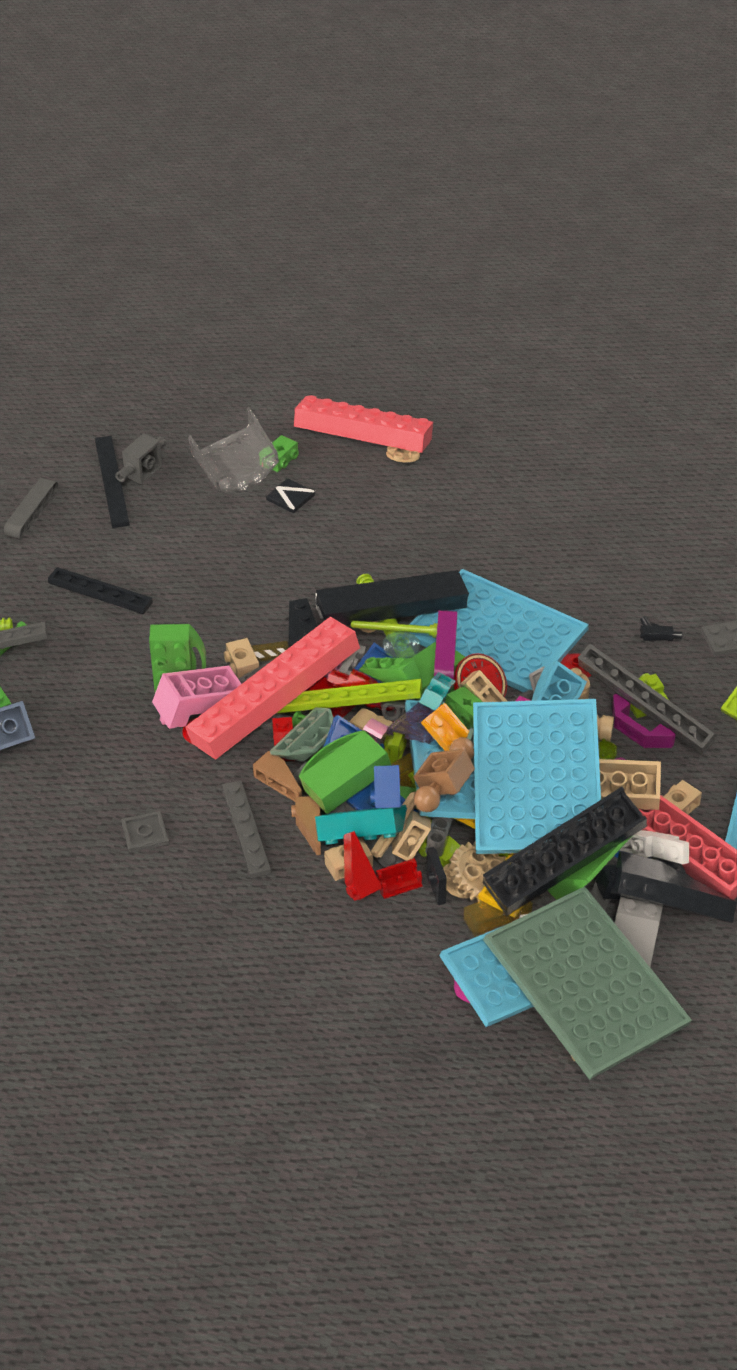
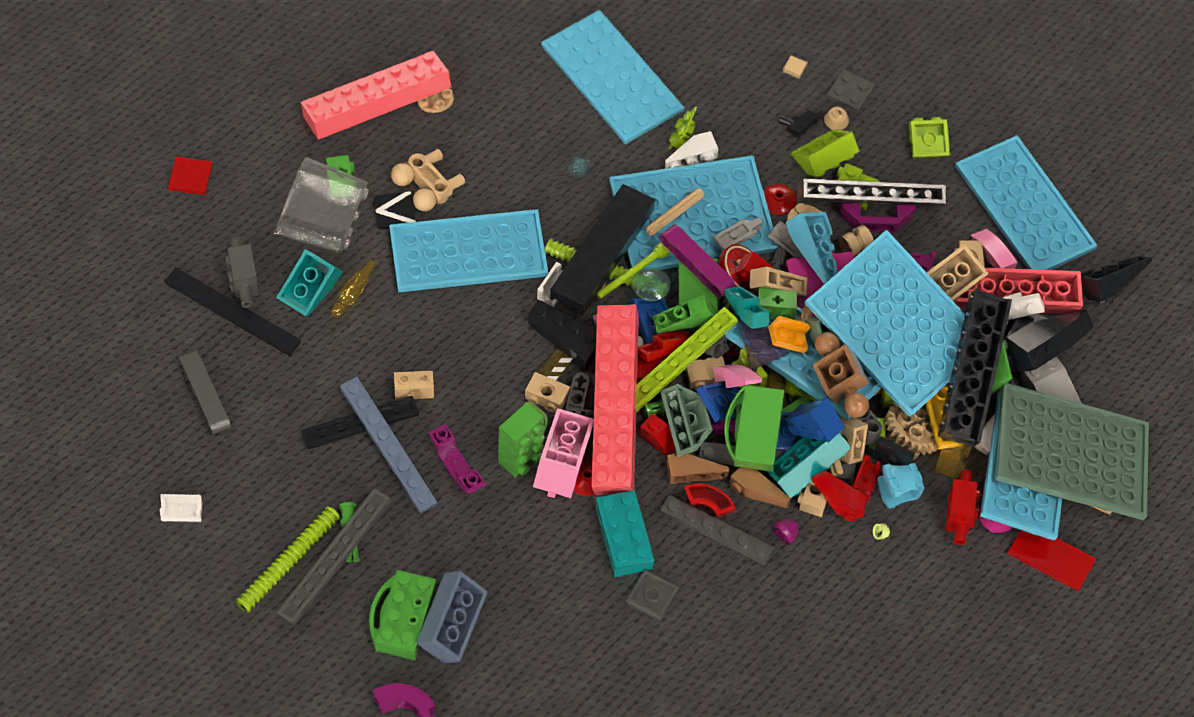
camera: 50 degrees left, 15 degrees up
(96, 613) = (388, 445): none -> sand blue plate
(131, 646) = (446, 449): none -> magenta slope
(162, 592) = (415, 384): none -> tan brick
(174, 777) = (624, 533): none -> teal brick
(179, 495) = (309, 283): none -> teal slope
(189, 397) = (190, 175): none -> red tile
(196, 515) = (352, 290): none -> clear yellow animal
(264, 803) = (710, 497): none -> red brick
(293, 864) = (786, 530): none -> magenta cone
(305, 546) = (468, 250): none -> medium azure plate
(335, 482) = (433, 186): none -> tan piece
(366, 923) = (881, 528): none -> yellowish green hinge
(418, 899) = (900, 484): none -> medium azure piece
(433, 943) = (962, 506): none -> red brick
(451, 552) = (579, 167): none -> clear light blue plate
(482, 1051) = (1053, 558): none -> red tile
(485, 616) = (674, 211): none -> tan axle
(511, 658) = (738, 233): none -> light grey hinge
(546, 592) = (695, 150): none -> white slope
(548, 519) = (612, 76): none -> medium azure plate
(554, 575) = (684, 130): none -> lime hinge
(650, 660) = (826, 152): none -> lime slope
(689, 646) = (836, 118): none -> tan cone
(698, 597) = (795, 66): none -> tan tile
(708, 809) = (994, 250): none -> bright pink slope

